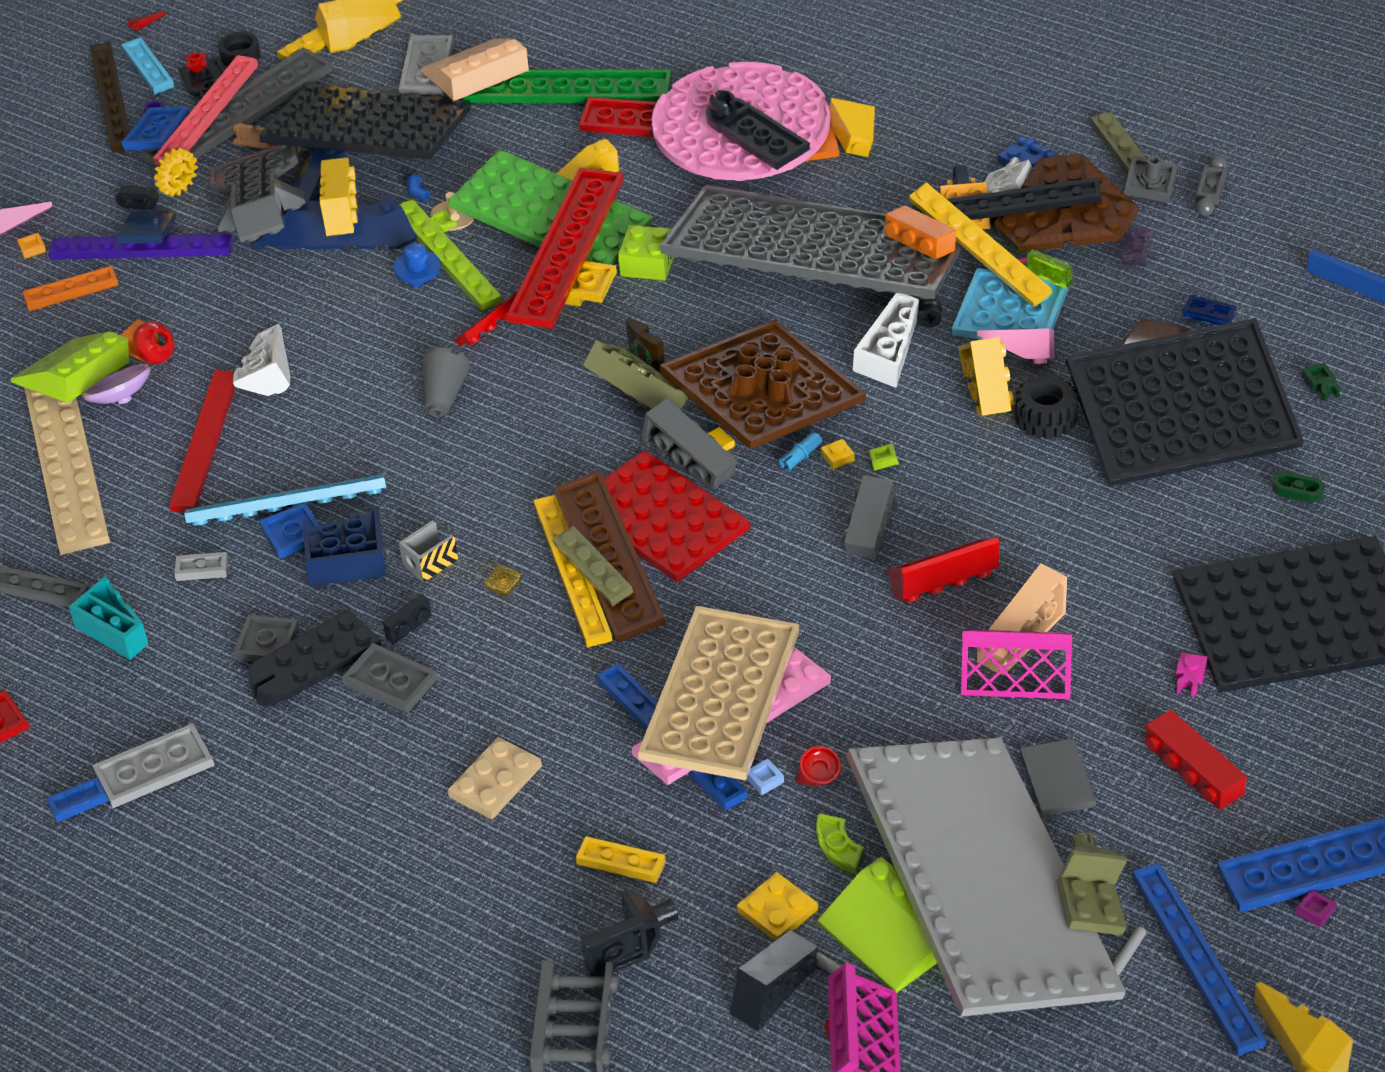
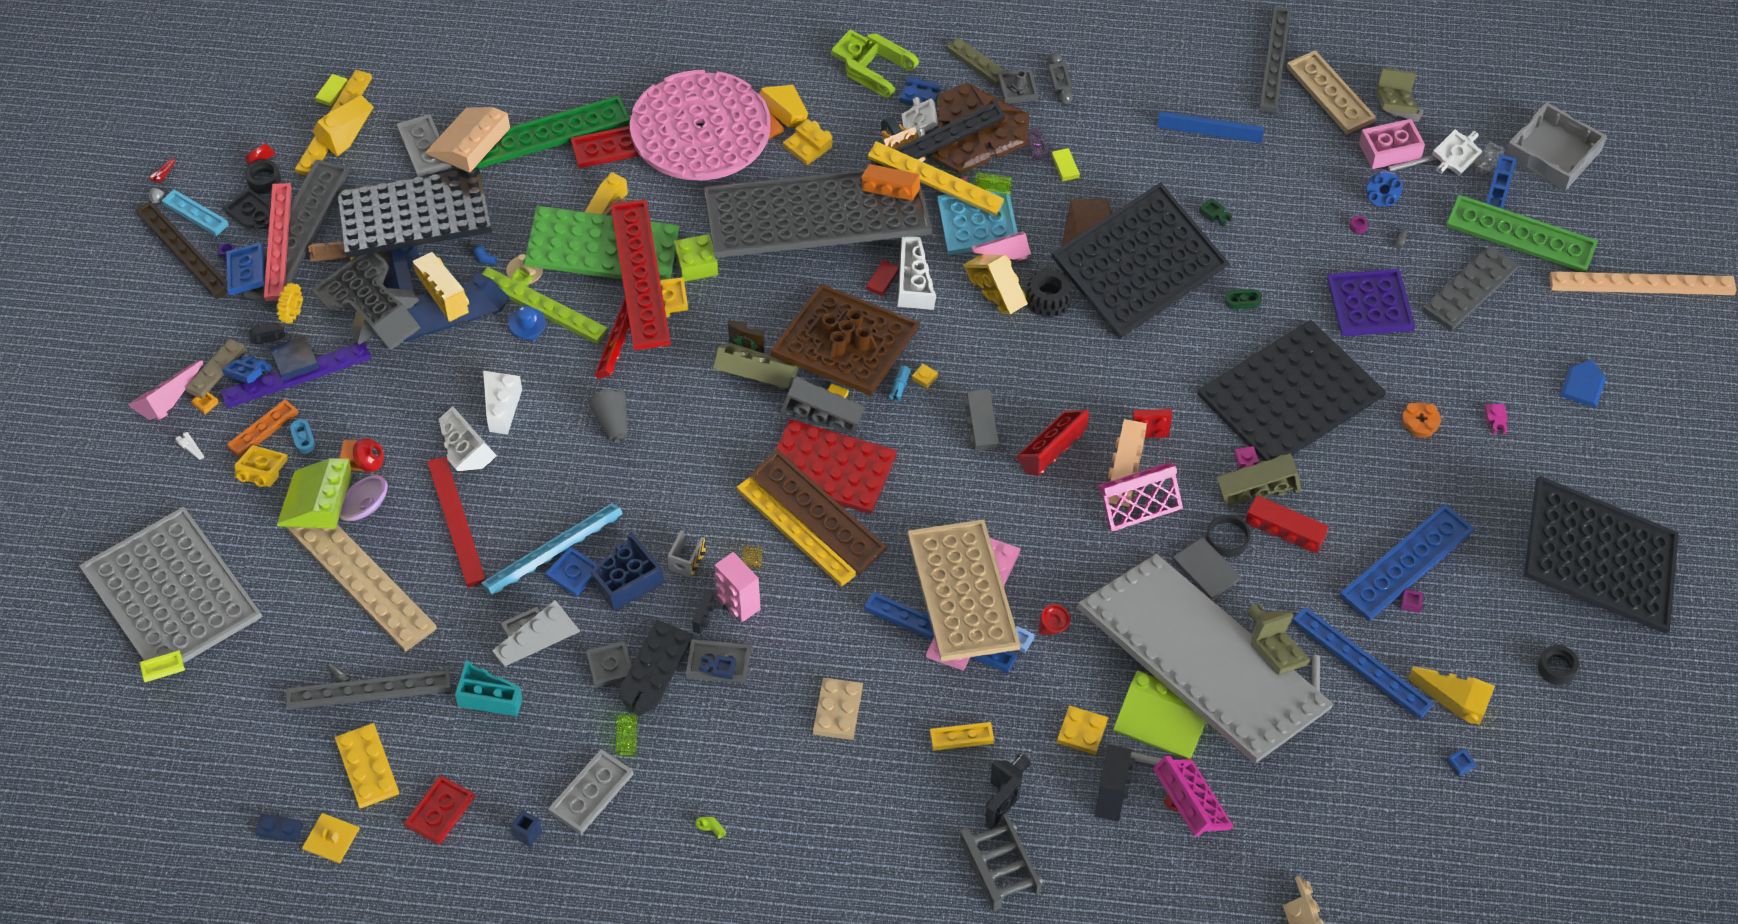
camera: 30 degrees left, 10 degrees up
(38, 321) = (260, 466): none -> yellow plate
(51, 774) = (526, 828): none -> dark blue brick
(62, 216) = (212, 371): none -> dark tan plate
(77, 799) = (552, 838): blue plate -> none
(88, 225) = (247, 369): none -> blue plate
(103, 306) = (304, 437): none -> dark azure plate
(120, 38) = (156, 195): none -> light grey hinge
(196, 61) = (236, 198): red plate -> none
(200, 578) = (540, 632): none -> light grey wedge
(235, 721) = (626, 735): none -> clear neon green plate
(251, 24) = (261, 153): none -> red piece
(262, 850) = (710, 824): none -> lime arm
(332, 333) = (501, 400): none -> white wedge
(382, 681) = (721, 667): none -> dark blue plate
(453, 599) = (737, 587): none -> bright pink brick
(593, 566) = (814, 524): olive plate -> none
(754, 130) = (720, 132): black plate -> none
(836, 844) = (1093, 669): lime tile -> none
(850, 337) = (882, 278): none -> red tile
(859, 173) = (808, 142): none -> yellow plate
(883, 457) = (959, 368): lime tile -> none
(929, 312) = (928, 243): black wheel -> none
(976, 94) = (860, 51): none -> lime plate
(1085, 585) = (1157, 421): none -> red plate
(1114, 727) = (1233, 520): none -> black tyre
(1160, 279) = (1065, 164): none -> neon yellow tile
(1192, 695) = (1260, 479): none -> olive wedge
(1209, 310) = (1113, 180): clear blue plate -> none

